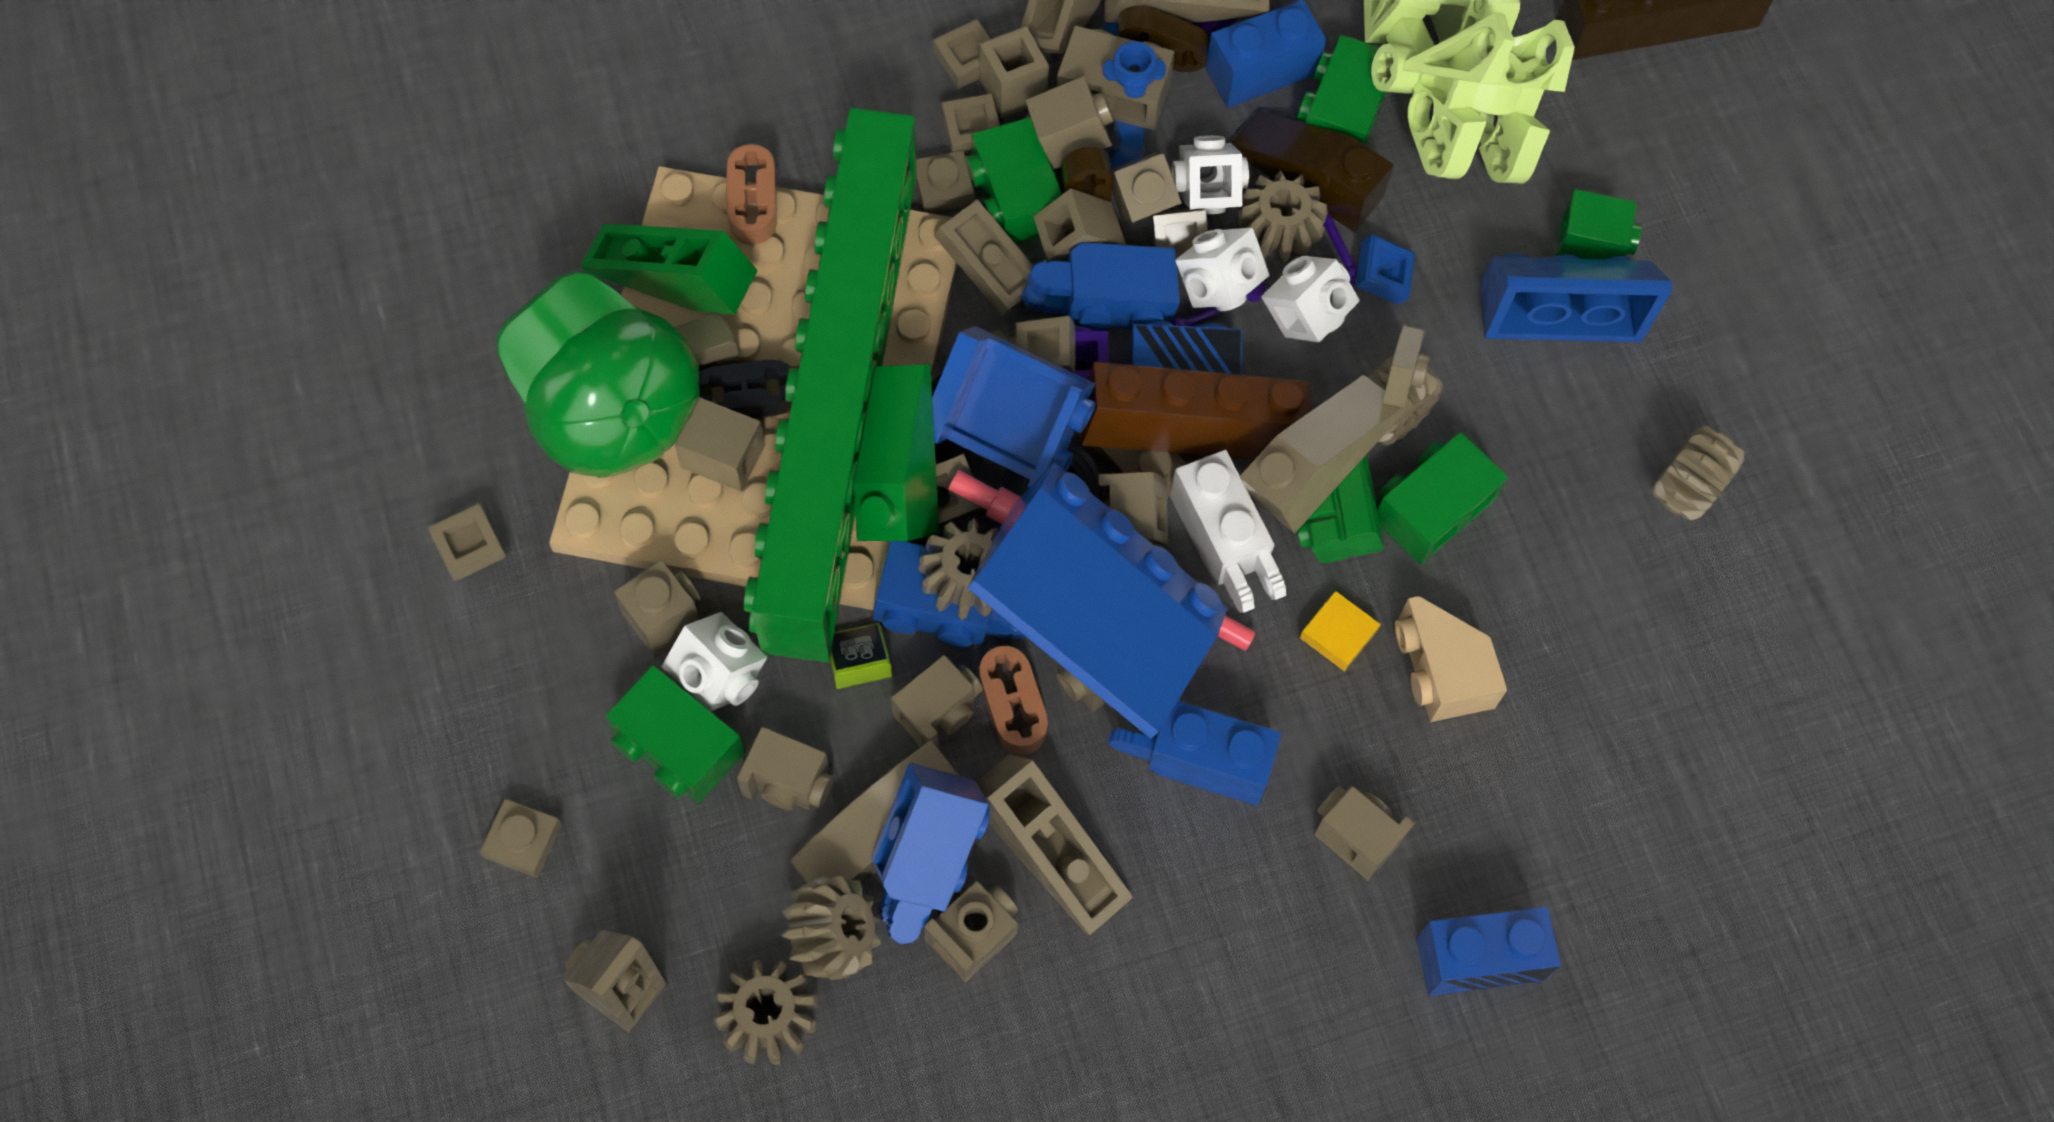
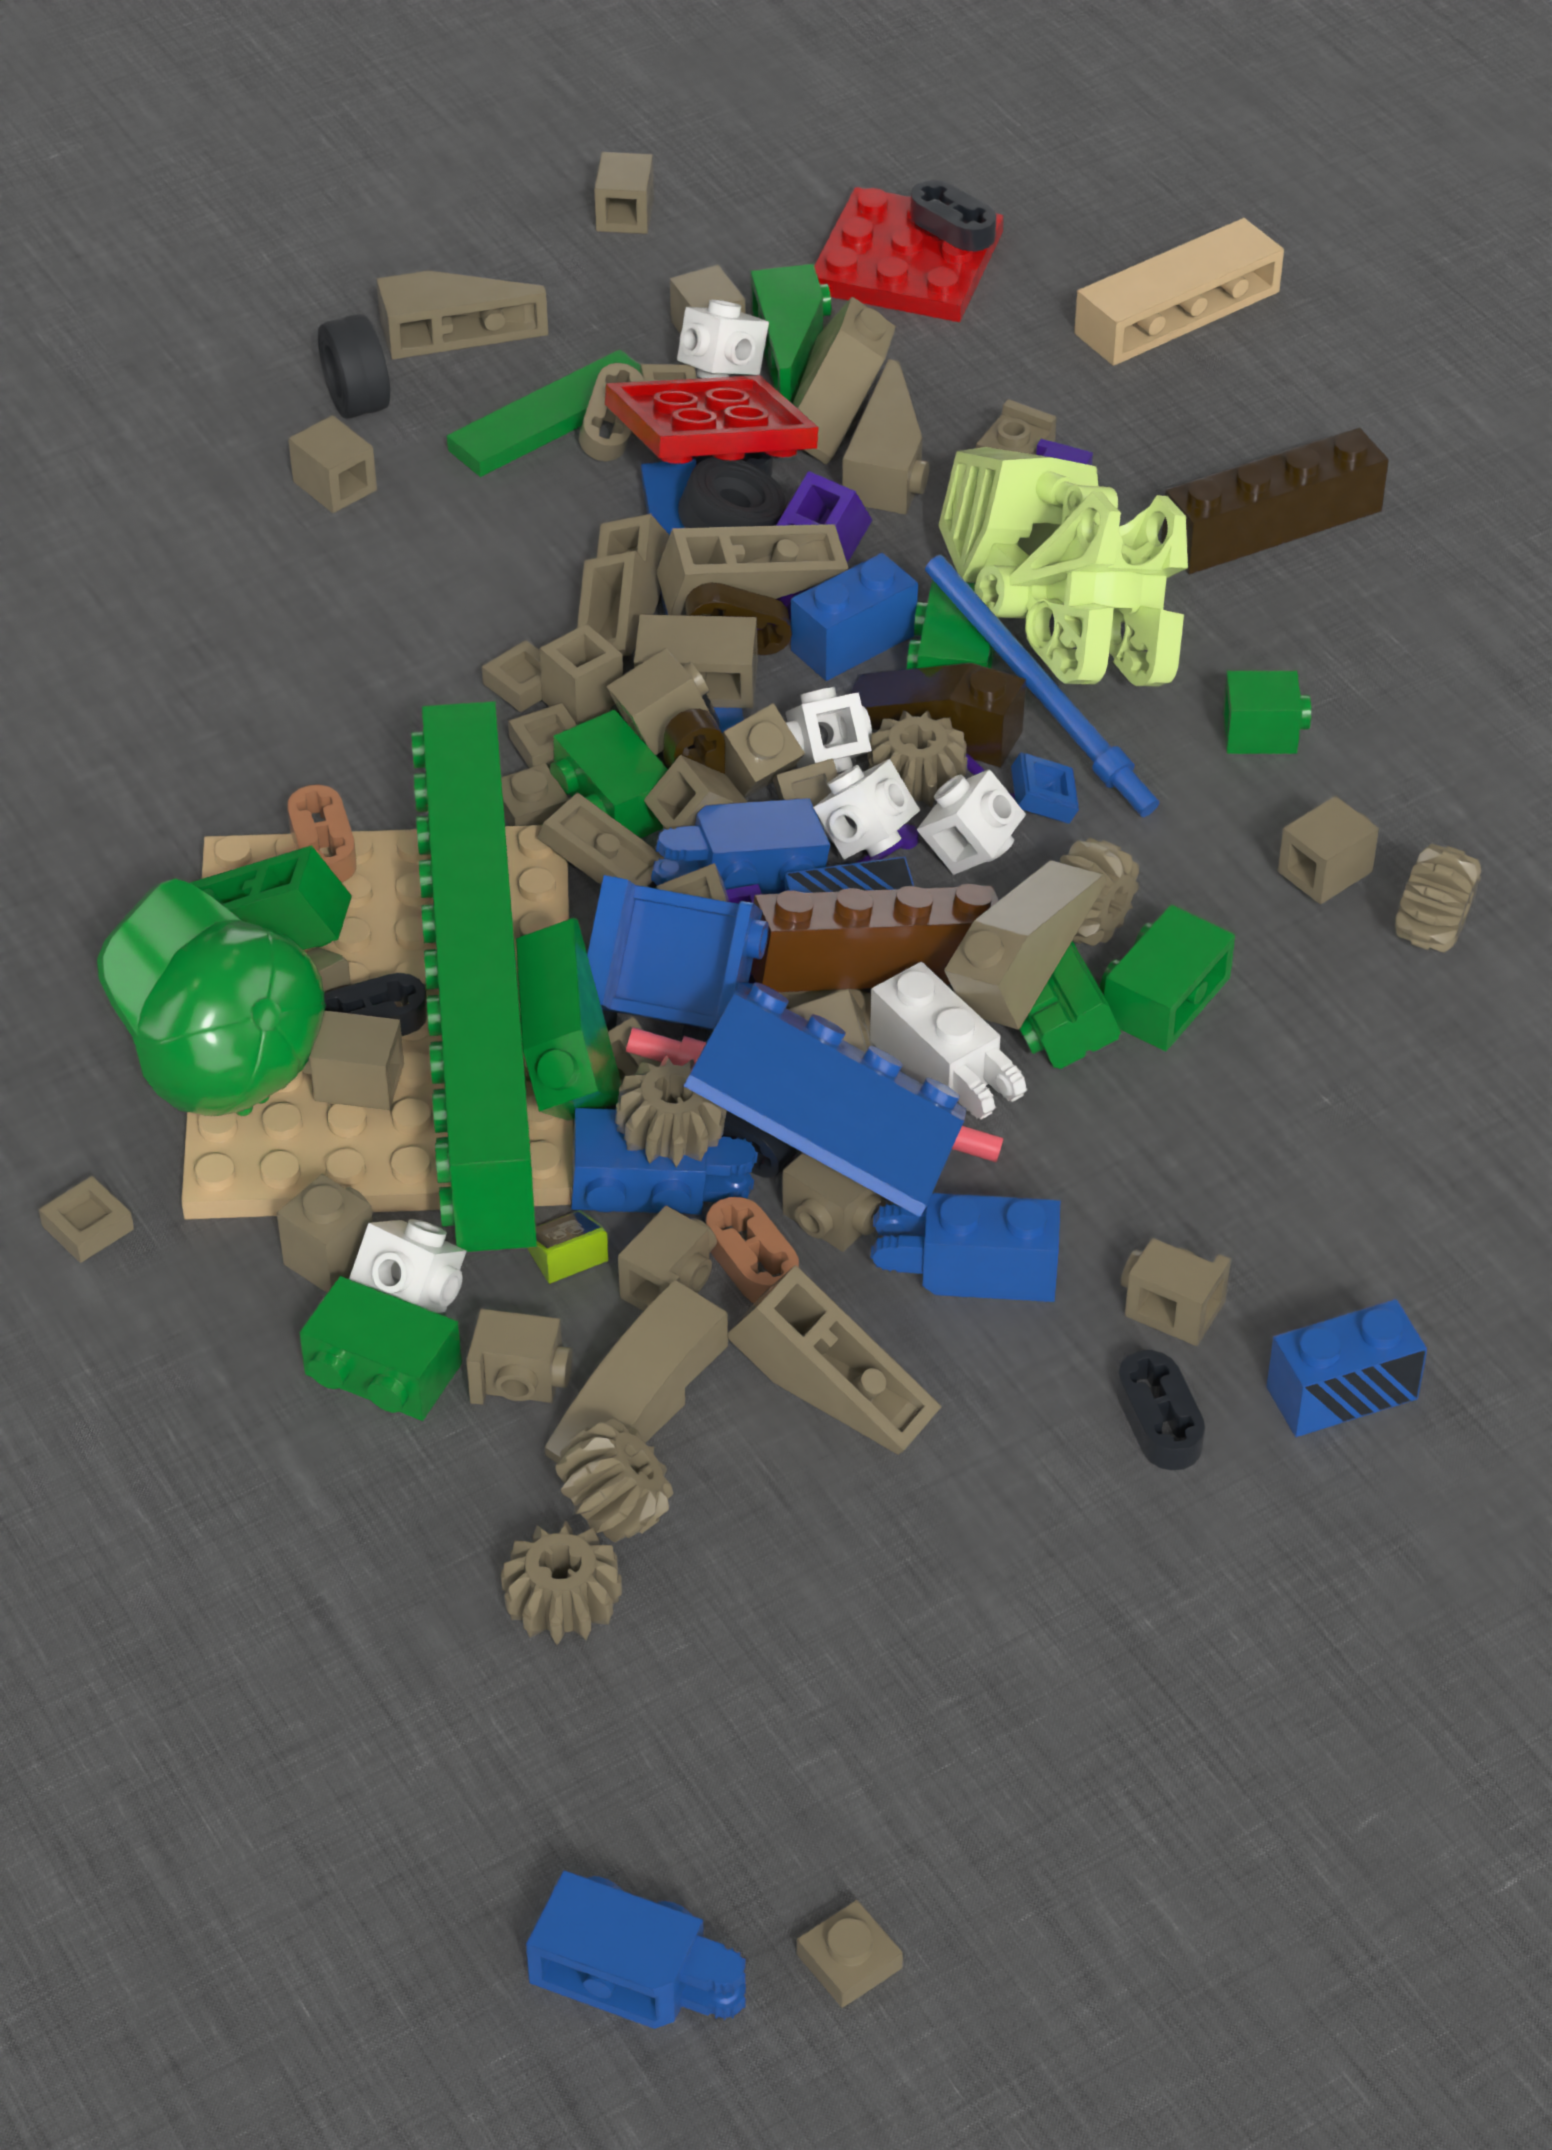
camera: 10 degrees left, 20 degrees down
(521, 838) = (228, 1486): dark tan plate -> none
(614, 977) = (386, 1567): dark tan slope -> none
(926, 847) = (699, 1375): hinge -> none
(967, 949) = (771, 1464): dark tan brick -> none
(1134, 56) = (718, 634): blue plate -> none
(1332, 946) = (1148, 1413): none -> black beam
(1340, 631) = (1096, 1121): yellow tile -> none
(1407, 367) = (1095, 834): dark tan plate -> none
(1448, 257) = (1110, 763): none -> blue bar
(1451, 662) = (1225, 1119): tan slope -> none
(1571, 298) = (1253, 774): blue slope -> none
(1615, 396) = (1328, 849): none -> dark tan brick

